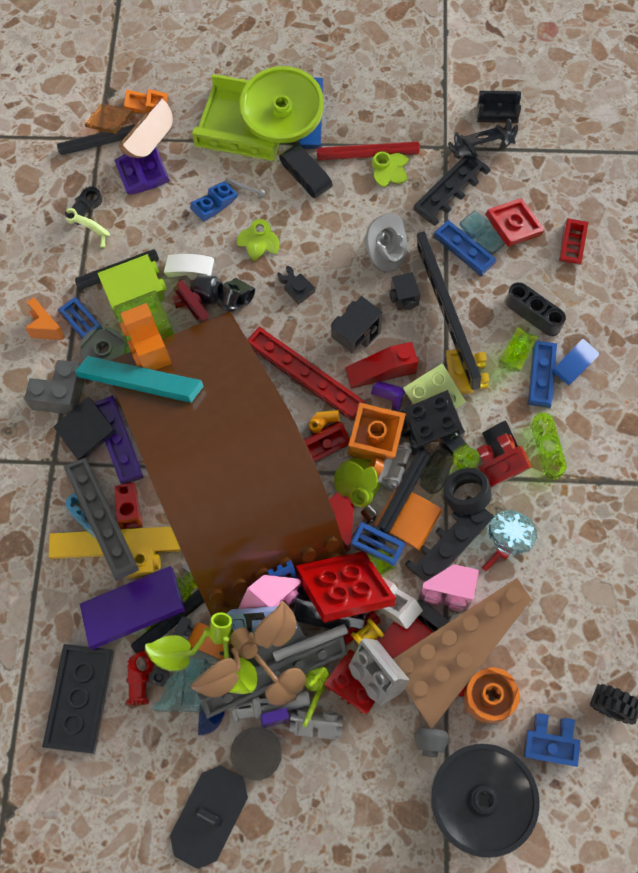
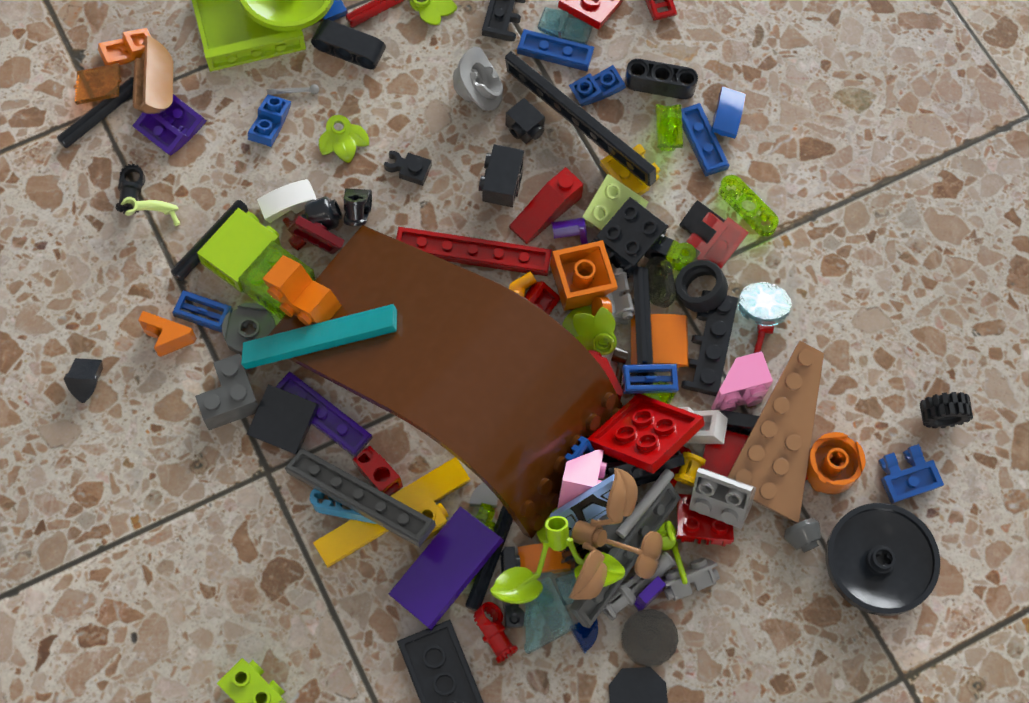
camera: 35 degrees left, 0 degrees up
(479, 292) = (597, 87): none -> blue slope

